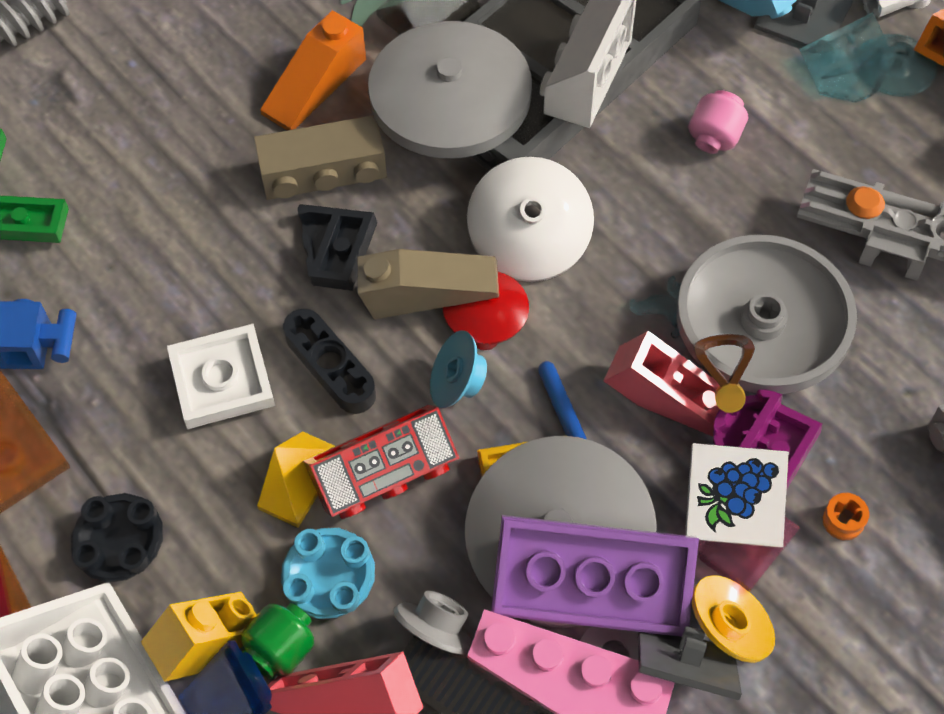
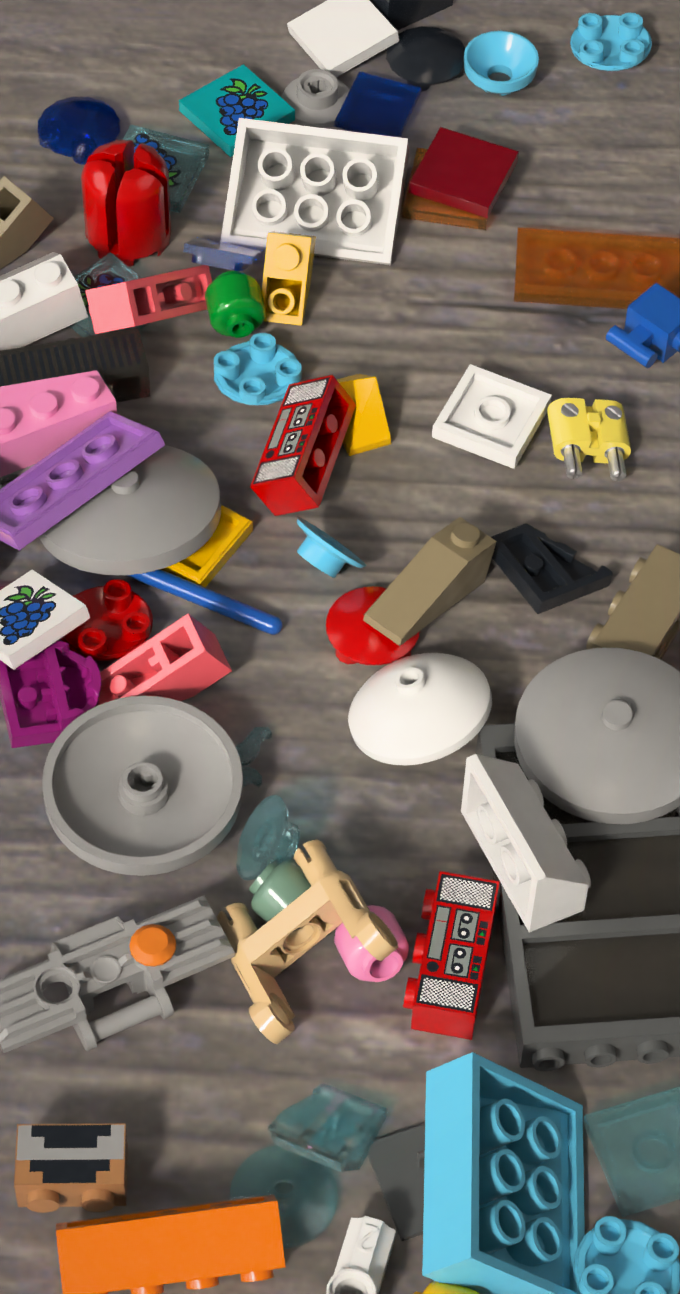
camera: 130 degrees right, 5 degrees down
(116, 537) = (418, 281): black dish -> none
(180, 304) = (589, 431): none -> light yellow piece
(332, 378) = (450, 481): black beam -> none
(436, 621) = (145, 363): light grey piece -> none
(662, 461) = (116, 624): none -> red dish
(675, 81) = (452, 955): none -> brick
(720, 216) = (266, 838): none -> clear light blue piece
(729, 394) = (100, 671): reddish brown piece -> none
(739, 184) = (277, 888): none -> sand green head
(744, 132) = (275, 946): none -> tan connector

